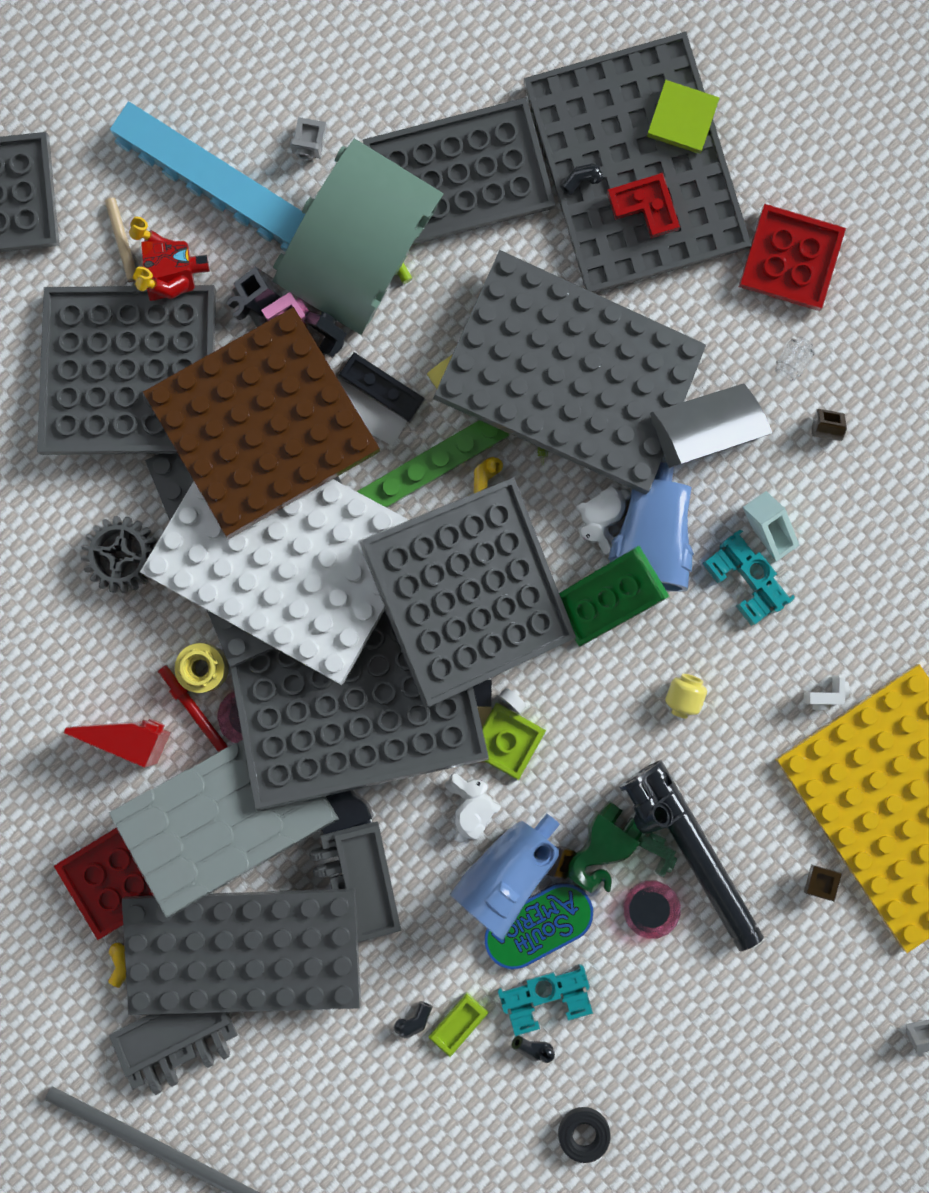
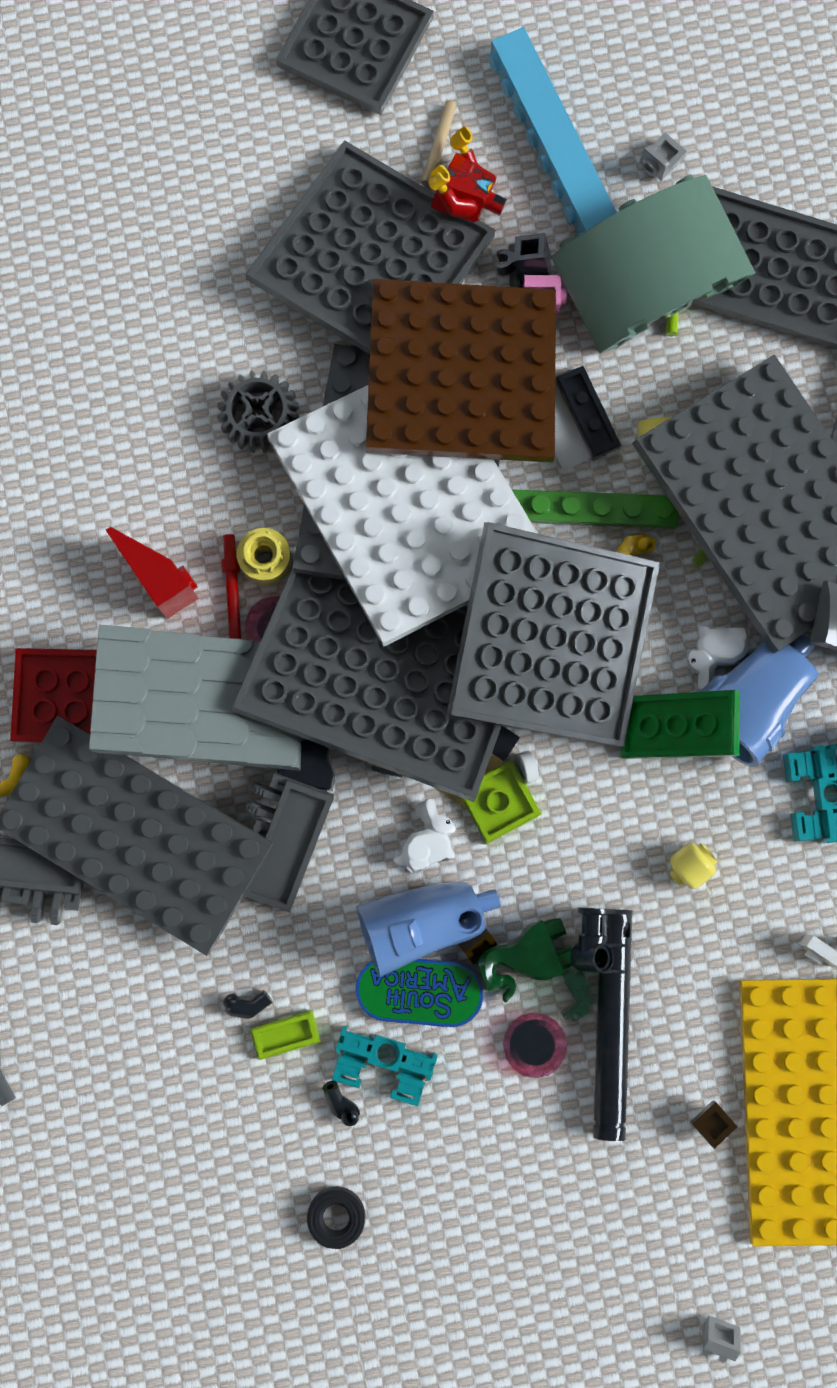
camera: 30 degrees right, 5 degrees down
(333, 334) = (572, 325): black bracket -> none

